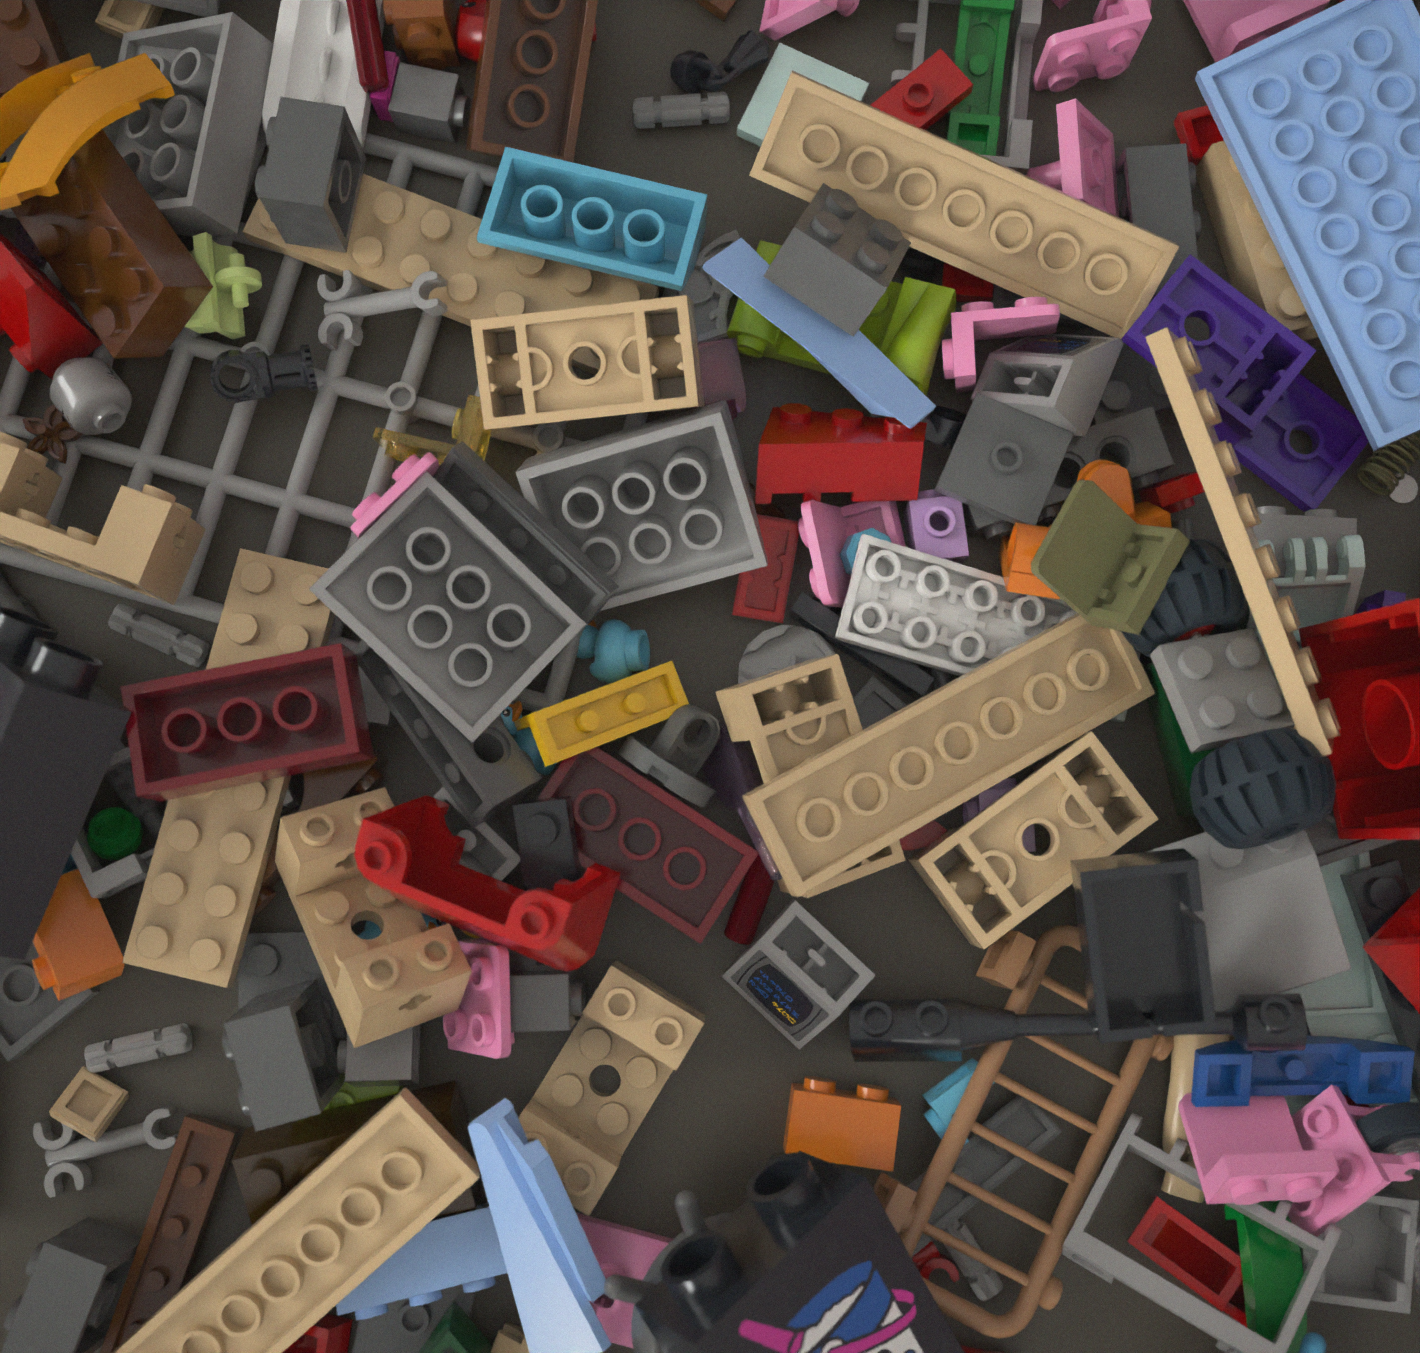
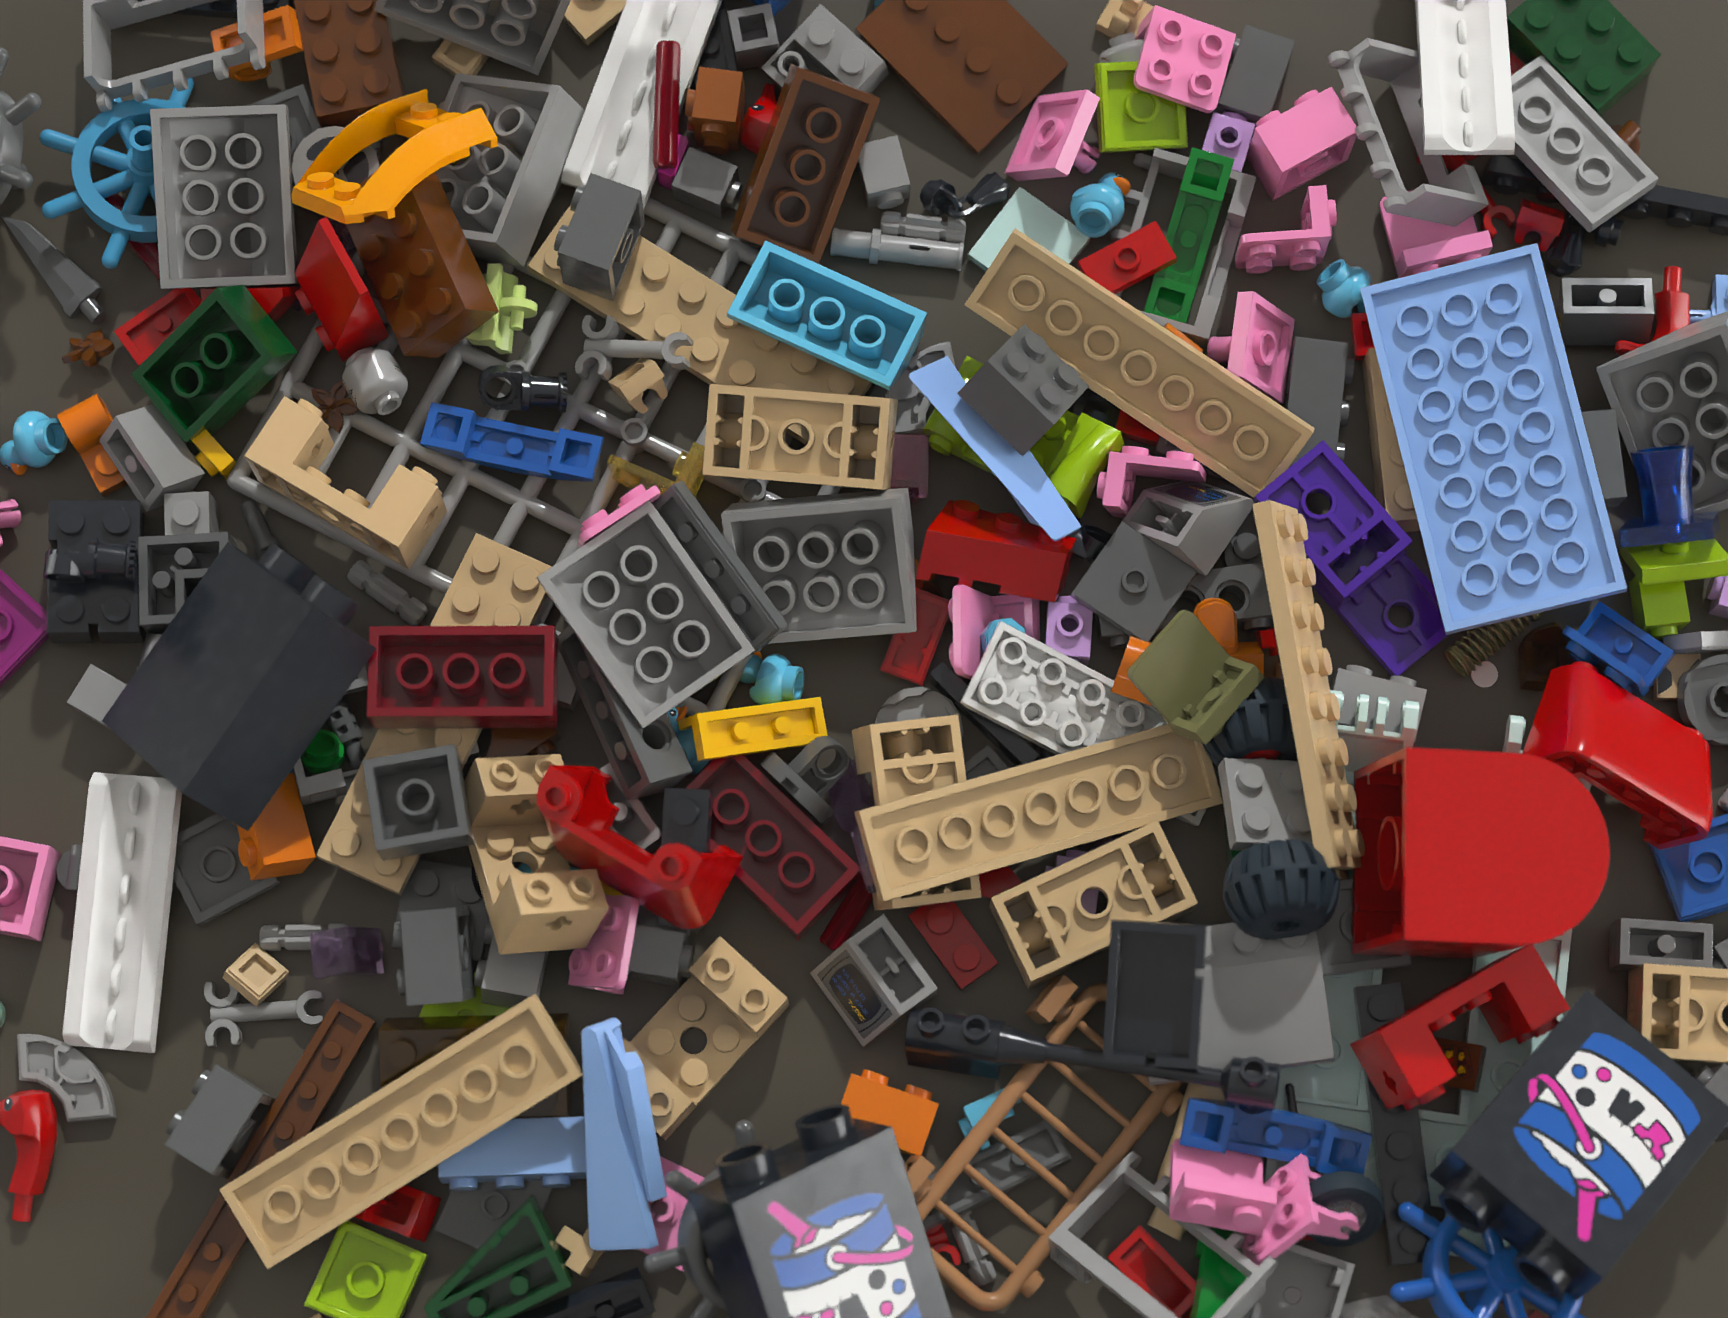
camera: 10 degrees right, 5 degrees down
(186, 1060) = (347, 952): none -> clear purple bracket
(221, 884) = (418, 802): none -> dark grey brick
(259, 440) = (511, 446): none -> blue slope
(387, 340) = (635, 380): none -> tan tile
(624, 54) = (883, 173): none -> light grey brick
(656, 138) = (896, 249): none -> light grey pin
(873, 45) = (1100, 205): none -> medium azure animal
(880, 912) = (953, 942): none -> red plate
(1166, 87) = (1342, 288): none -> medium azure animal

